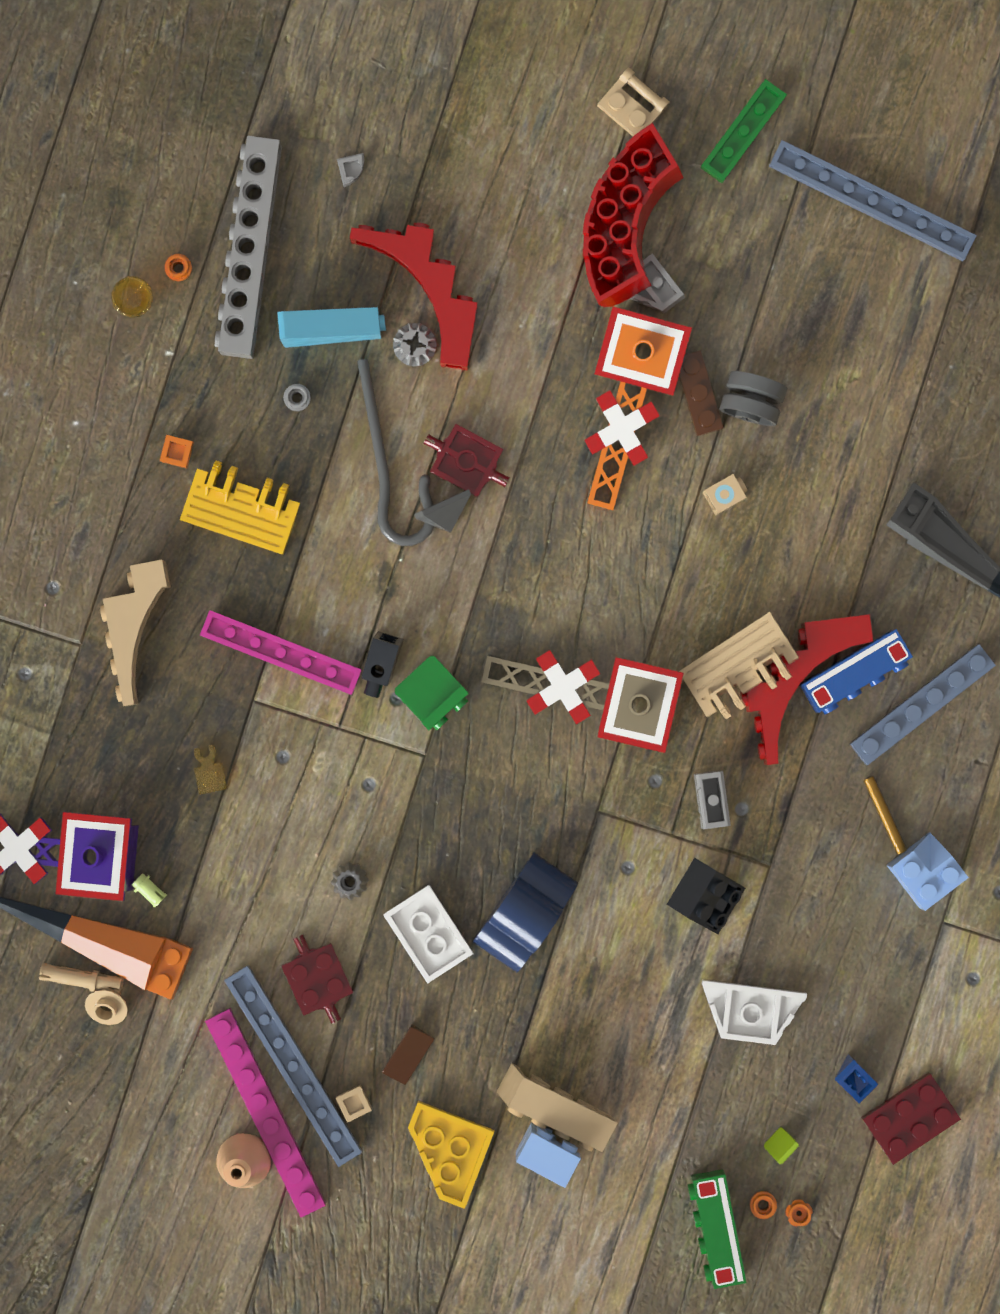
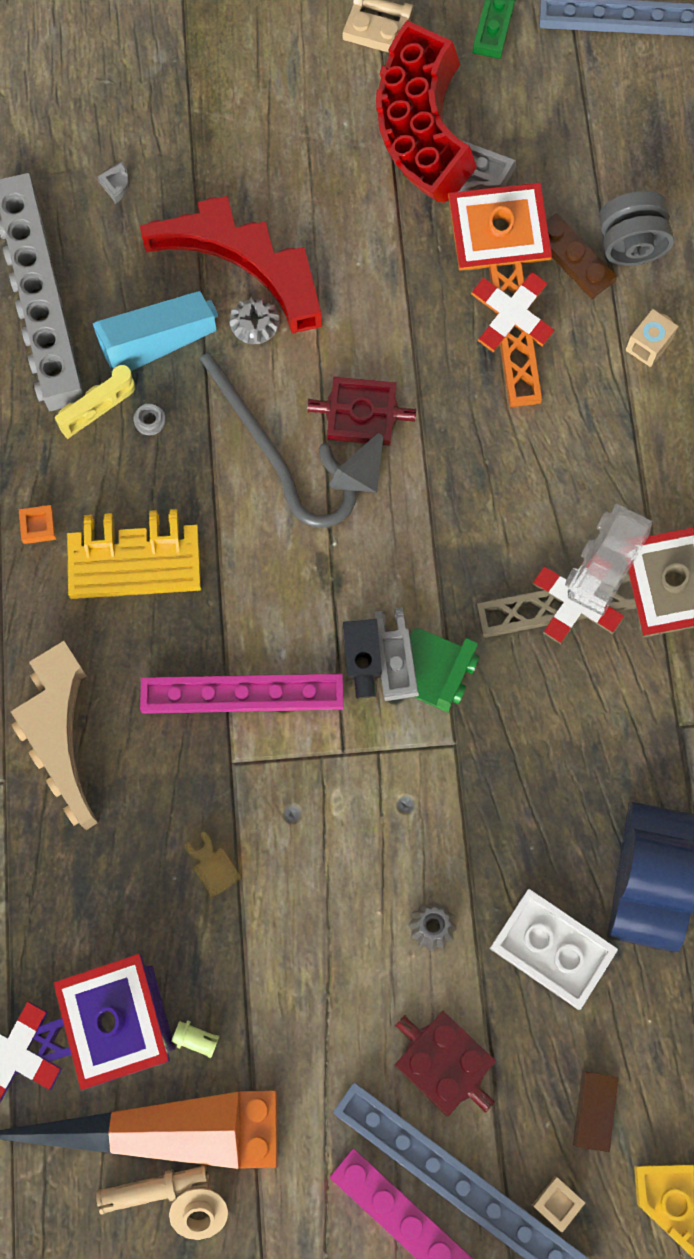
camera: 20 degrees left, 15 degrees down
(260, 366) = (96, 402): none -> light yellow plate
(406, 674) = (396, 658): none -> light grey hinge
(595, 669) = (608, 559): none -> clear brick

